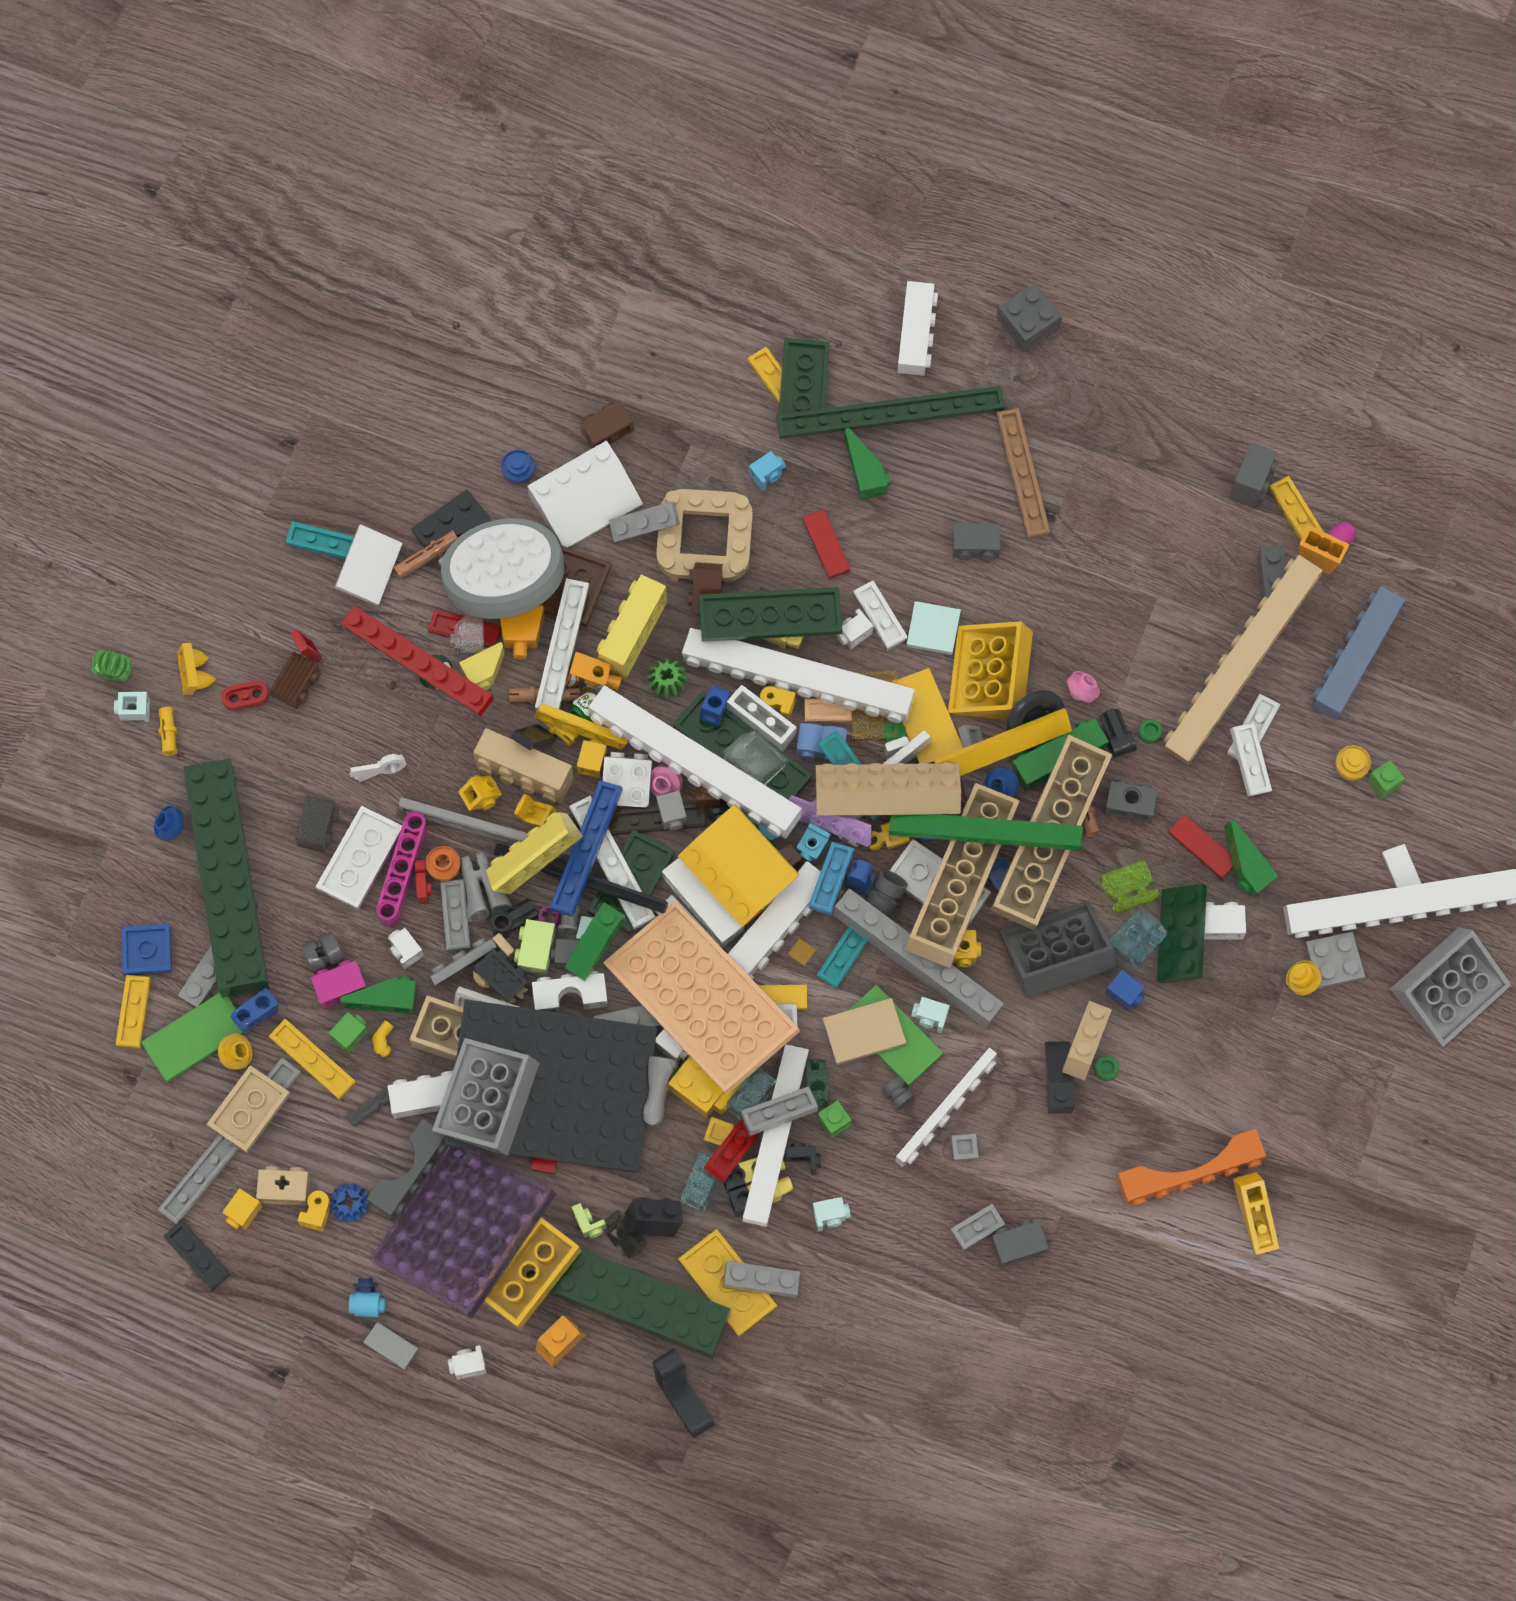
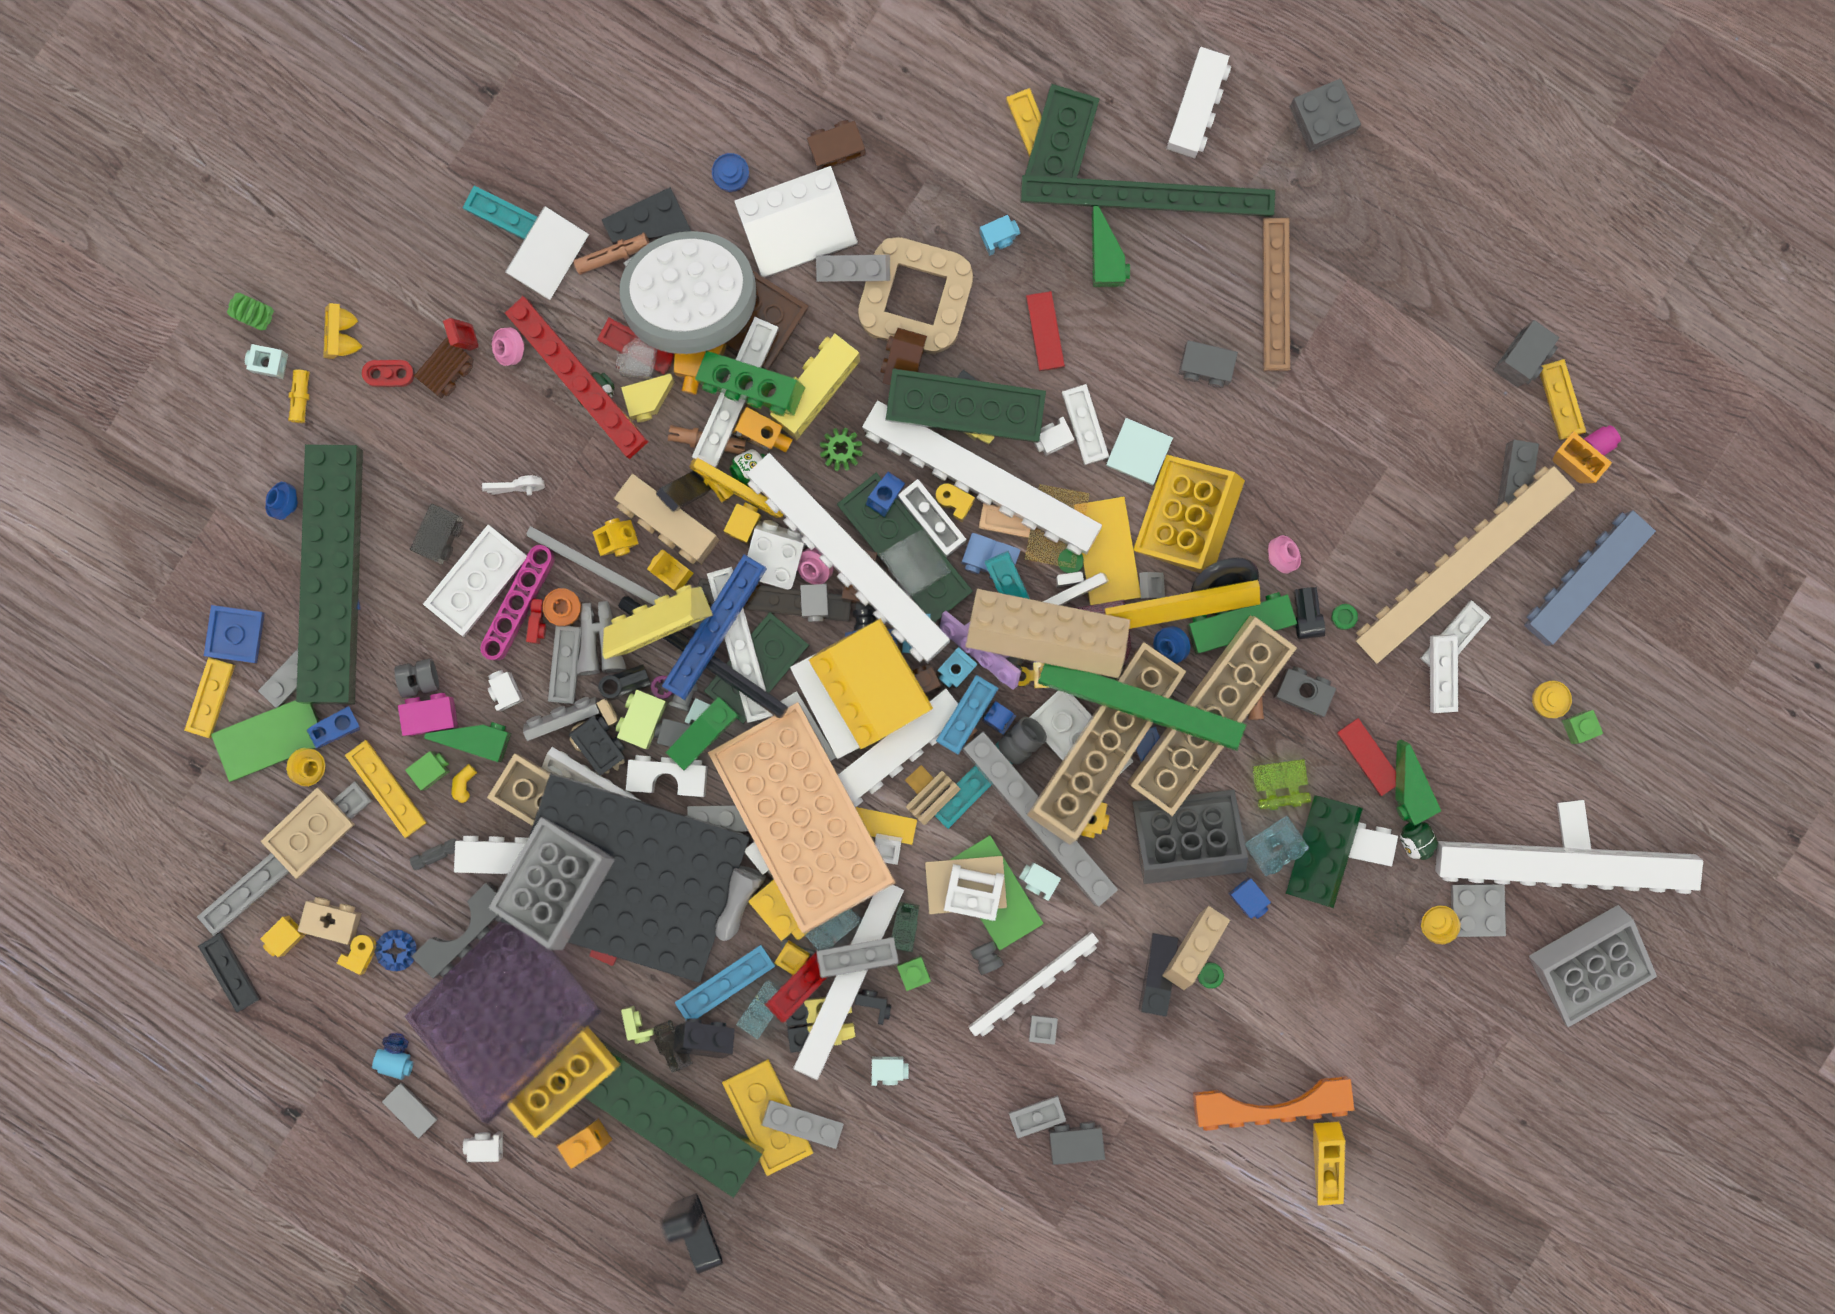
camera: 10 degrees right, 15 degrees up
(349, 650) = (507, 346): none -> bright pink plate
(565, 623) = (716, 367): none -> green brick
(663, 1165) = (725, 983): none -> dark azure plate
(814, 961) = (930, 795): none -> tan tile
(873, 1040) = (972, 901): none -> white plate
(1265, 908) = (1419, 840): none -> dark green head

